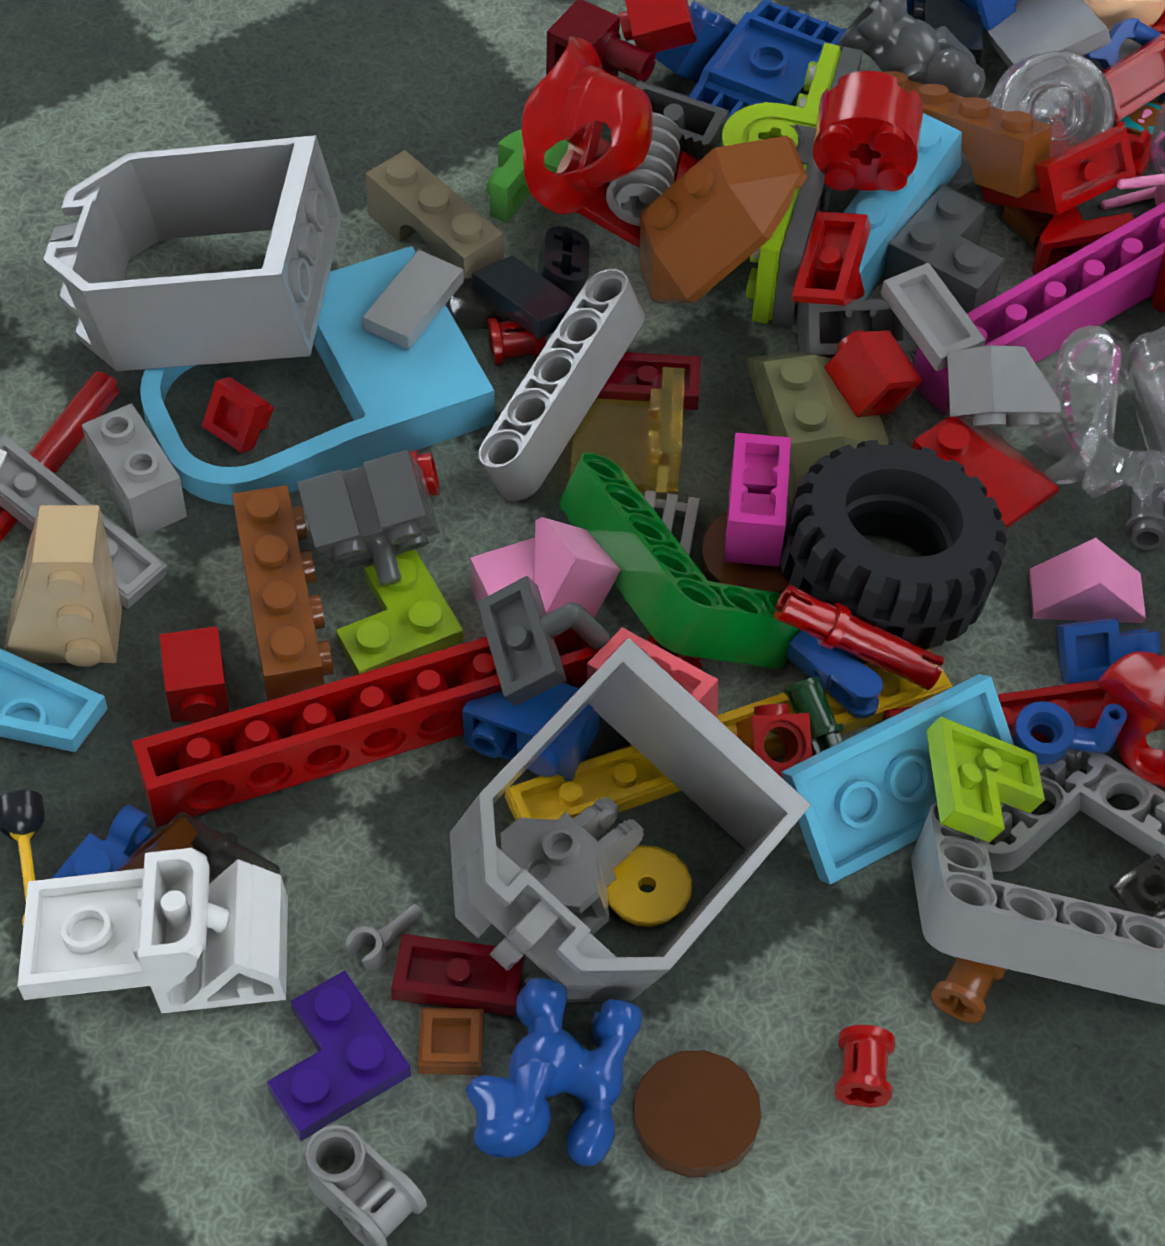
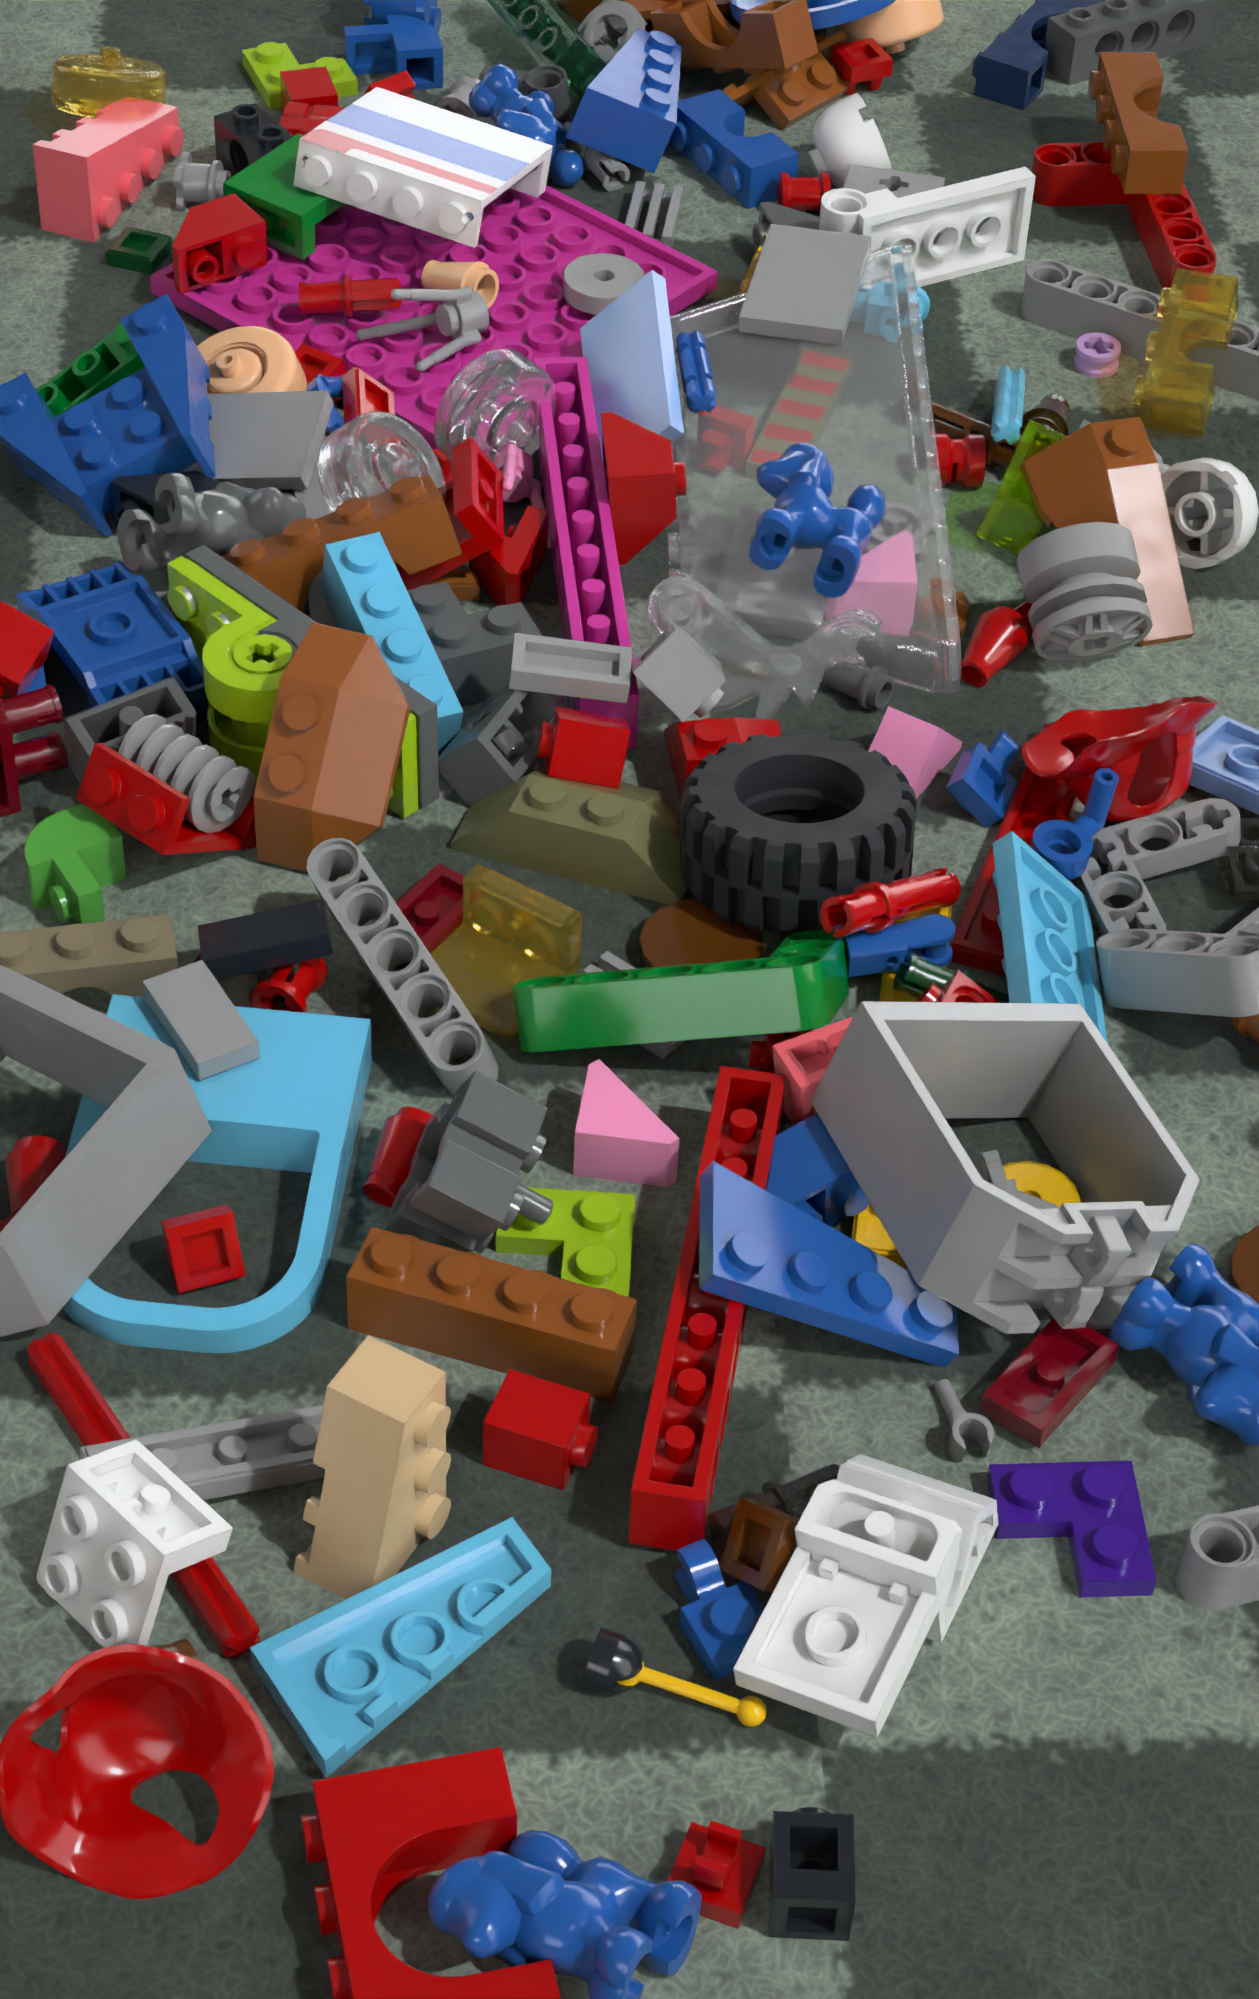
camera: 60 degrees left, 10 degrees down
(134, 470) = (213, 1363): light grey brick -> none
(417, 749) = (804, 1270): none -> blue wing
(451, 1041) = (1113, 1422): dark orange tile -> none
(524, 636) = (751, 1109): dark grey plate -> none
(565, 259) = (214, 898): black beam -> none
(566, 101) = (168, 734): red piece -> none
(571, 567) = (657, 1067): bright pink slope -> none
(757, 499) = (675, 893): dark pink brick -> none
(833, 260) = (463, 699): red slope -> none
(868, 133) = (350, 572): red brick -> none
(977, 775) = (1106, 898): lime plate -> none

